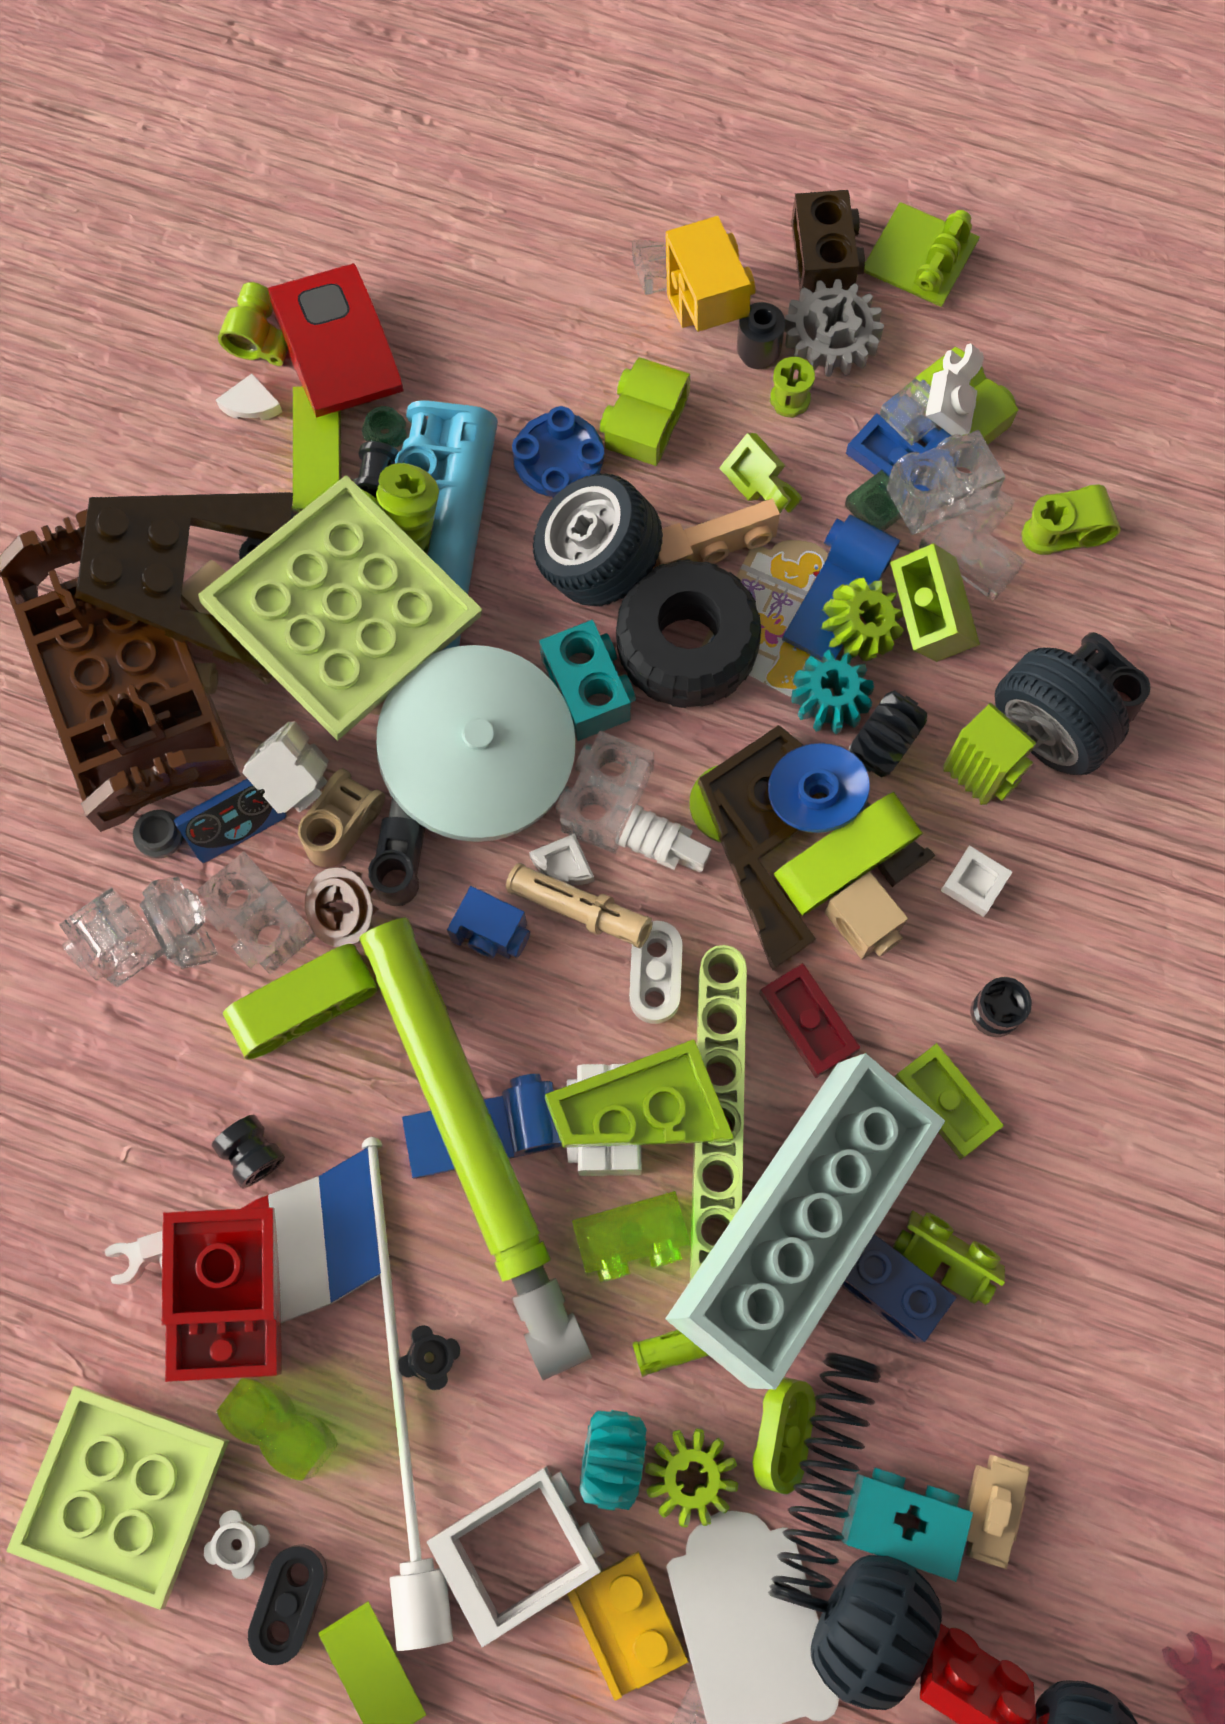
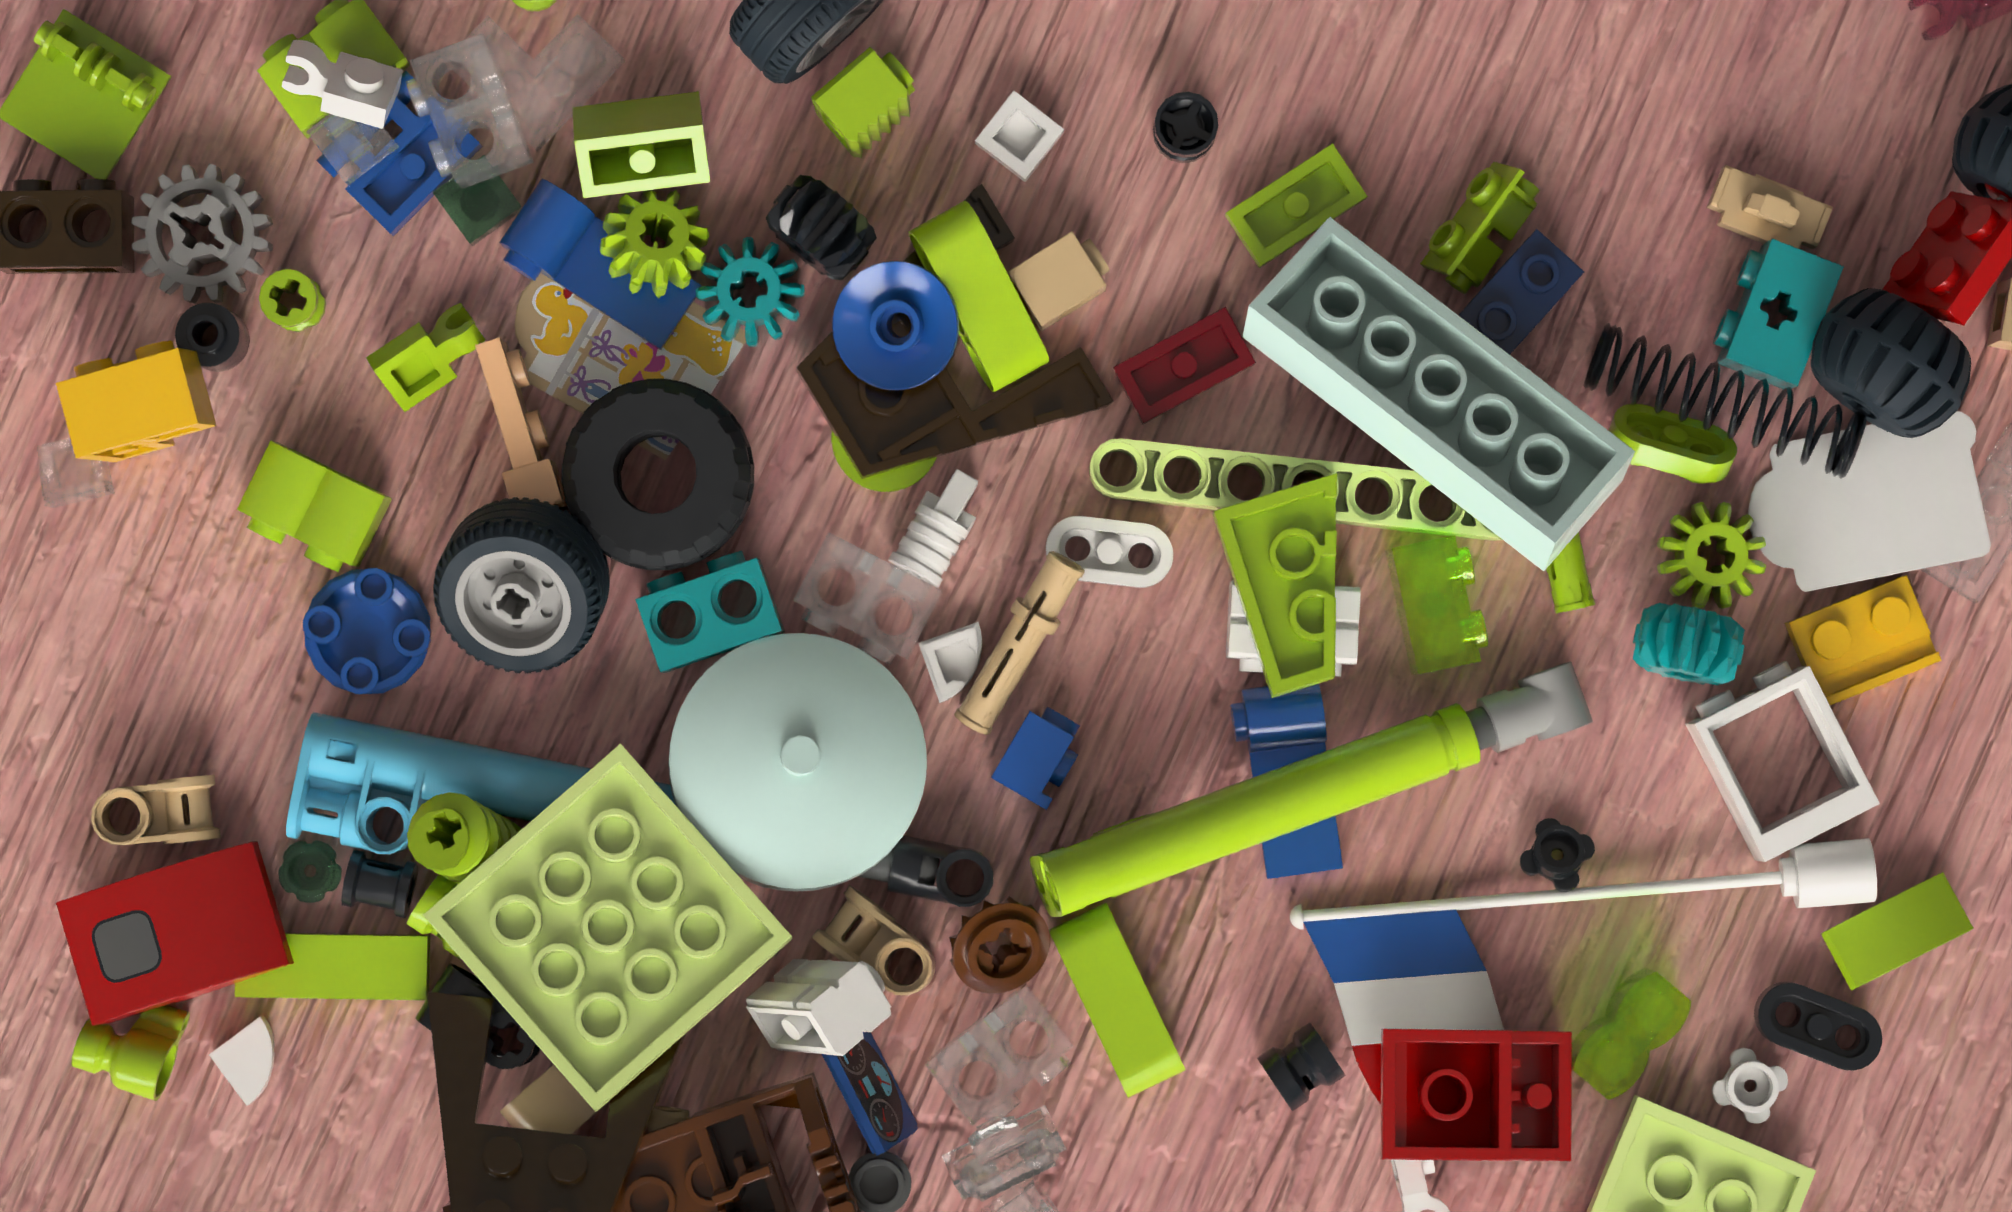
camera: 85 degrees left, 15 degrees up
(421, 331) = (162, 812): none -> tan piece

